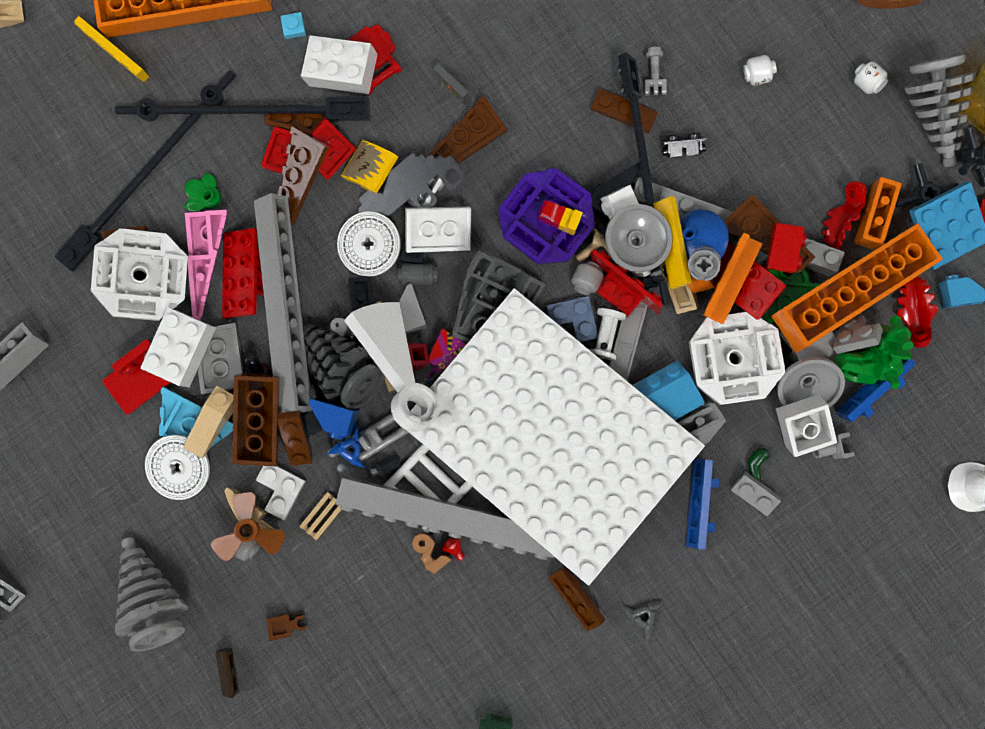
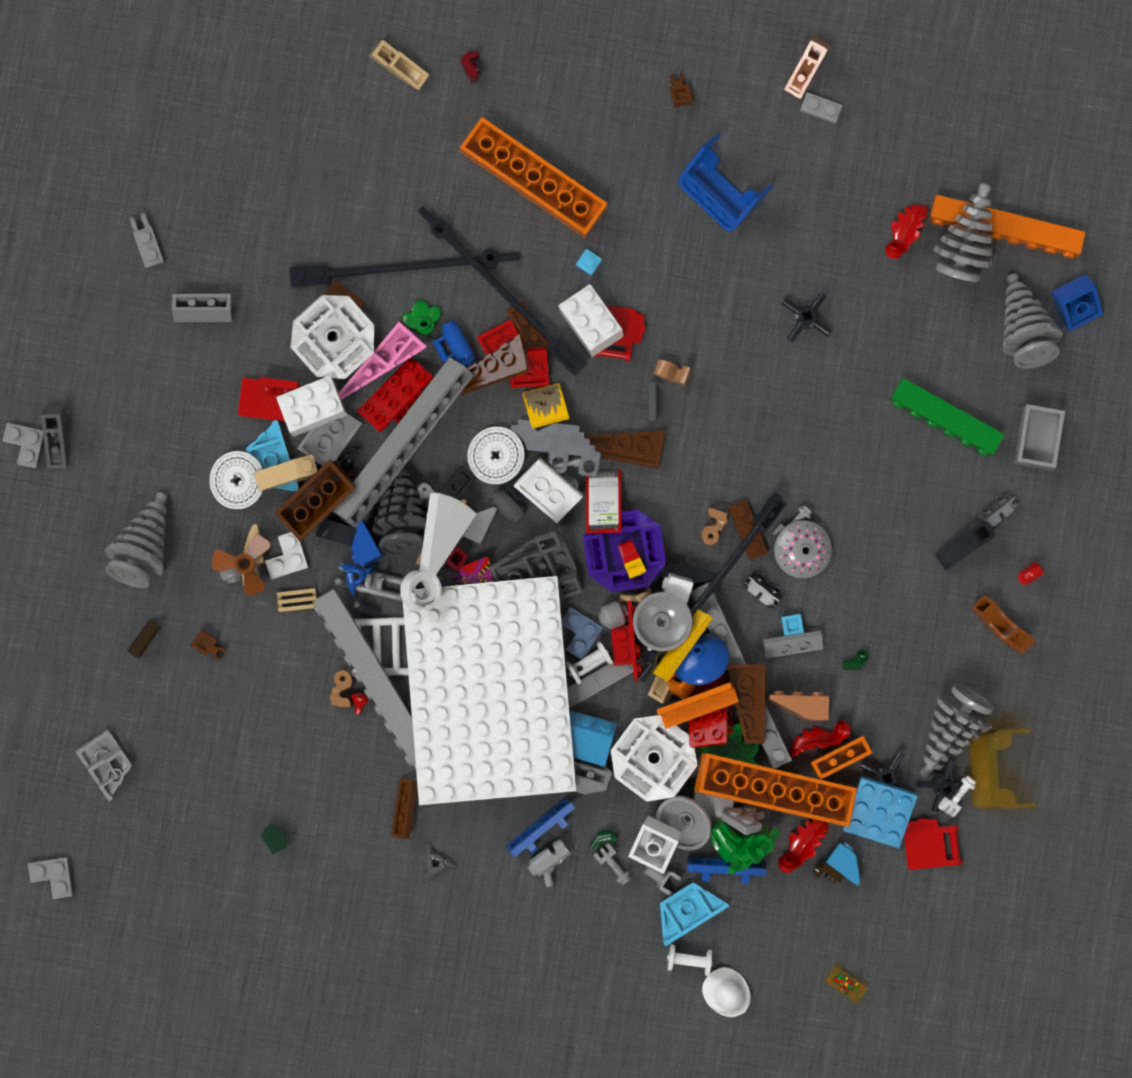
camera: 45 degrees right, 0 degrees up
(111, 49) = (455, 165): yellow tile -> none
(248, 185) = (458, 344): none -> blue piece
(294, 438) = (328, 535): reddish brown plate -> none
(439, 47) = (670, 372): none -> medium nougat leg
(492, 196) = (603, 502): none -> sticker
(599, 141) = (710, 533): none -> medium nougat leg
(674, 91) = (791, 542): none -> light grey dish
(704, 263) = (686, 677): light grey wheel -> none
(730, 524) = (545, 861): none -> light grey piece
(733, 149) = (792, 625): none -> medium azure plate
(749, 163) = (793, 644): none -> light grey plate
(756, 493) = (582, 857): light grey plate -> none
(759, 70) = (861, 590): white head -> none
(785, 248) = (749, 718): red brick -> none
(804, 477) = (608, 857): none -> light grey hinge
(810, 198) = (806, 707): none -> nougat slope
(811, 129) = (857, 662): none -> dark green arm
(870, 78) = (929, 667): white head -> none
(880, 453) = (687, 911): none -> medium azure wing
(923, 491) = (690, 960): none -> white hose
(951, 314) = (831, 873): none -> dark brown bracket

